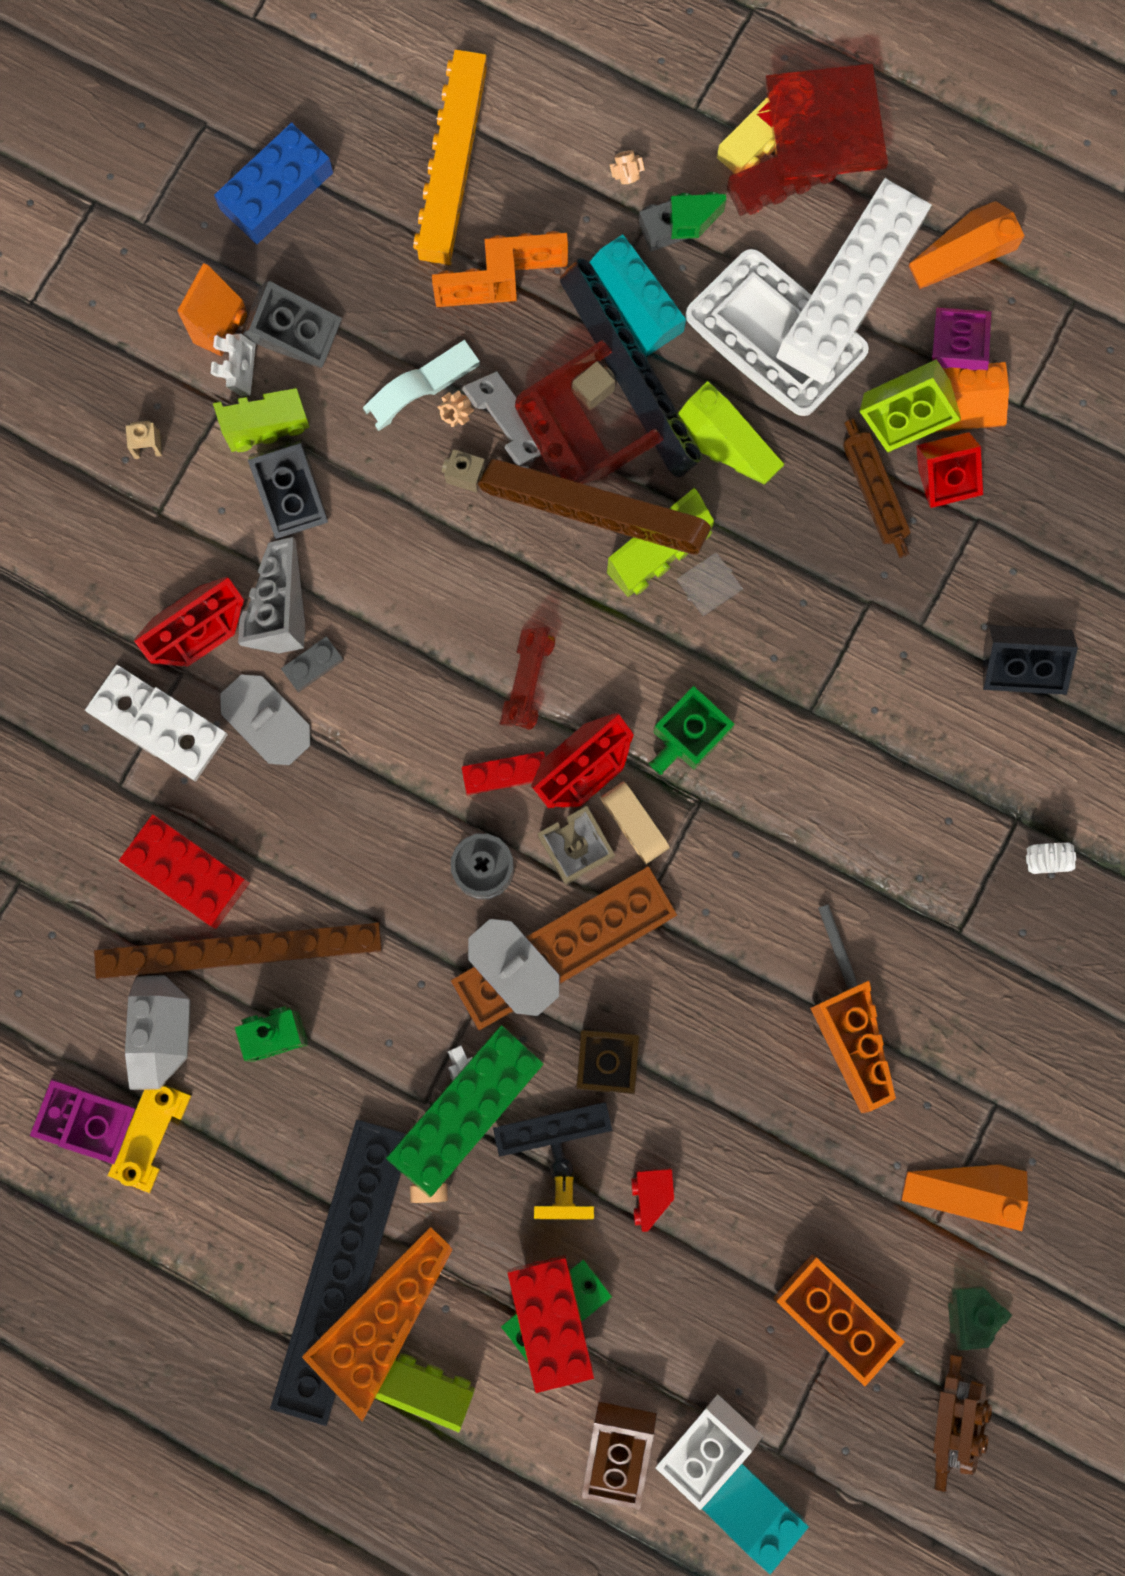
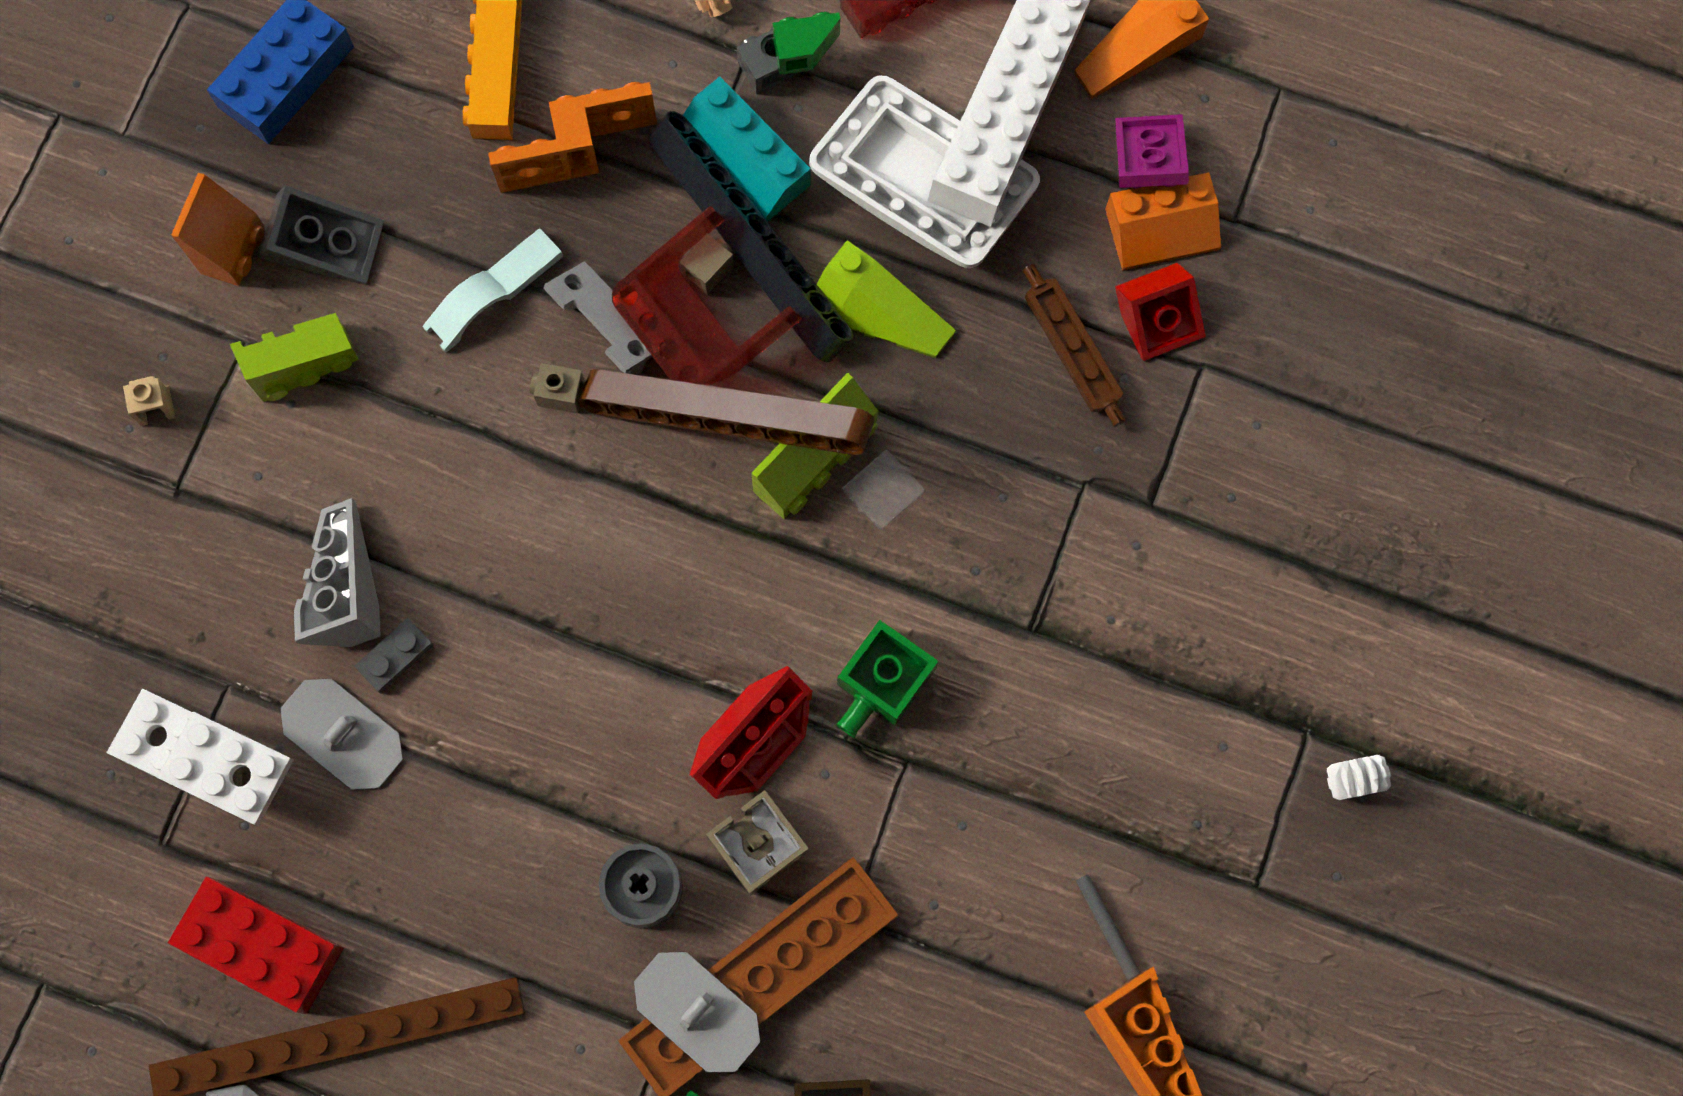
camera: 10 degrees left, 5 degrees down
(192, 625) = (234, 626): red wedge -> none
(239, 368) = (262, 291): white plate -> none
(288, 488) = (338, 438): black slope -> none
(455, 408) = (538, 313): light nougat gear -> none
(501, 773) = (651, 762): red plate -> none
(532, 647) = (670, 597): clear red brick -> none
(634, 822) = (828, 802): tan beam -> none
(911, 406) = (1101, 239): lime slope -> none
(1028, 659) = (1292, 531): black slope -> none

